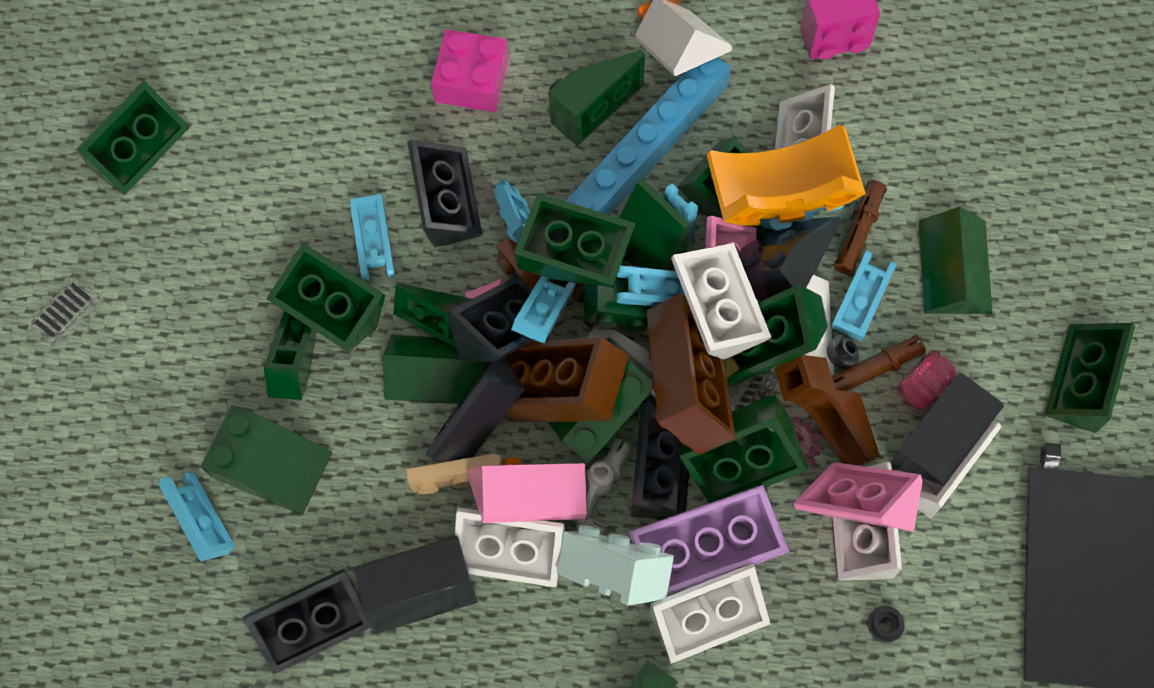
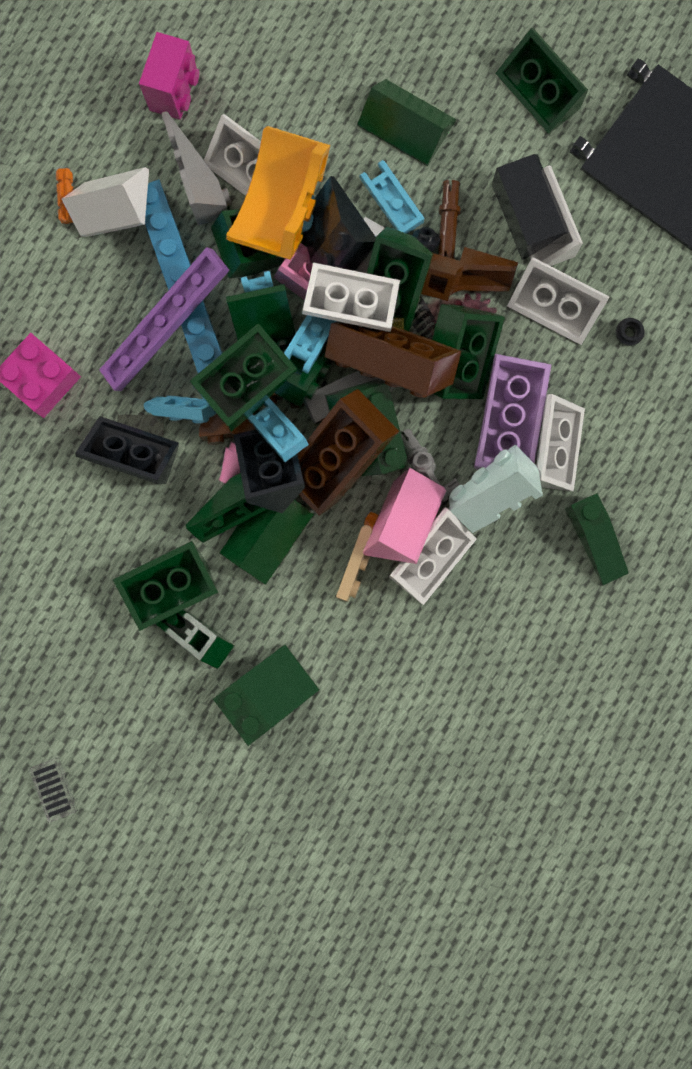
camera: 55 degrees left, 15 degrees up
(197, 517) = (279, 766): medium azure hinge -> none
(307, 621) = (405, 725): black slope -> none
(371, 234) = (130, 524): medium azure hinge -> none
(415, 585) = (422, 635): black slope -> none
(477, 413) = (325, 524): black slope -> none
(593, 145) = (164, 319): none -> medium lavender plate
(594, 94) = (116, 294): dark green slope -> none
(660, 473) = (435, 420): black slope -> none
(752, 102) = (199, 181): none -> light grey wedge
(864, 216) = (342, 172): reddish brown pin -> none
(864, 495) = (546, 289): bright pink slope -> none
(927, 379) = (483, 194): clear pink gear -> none

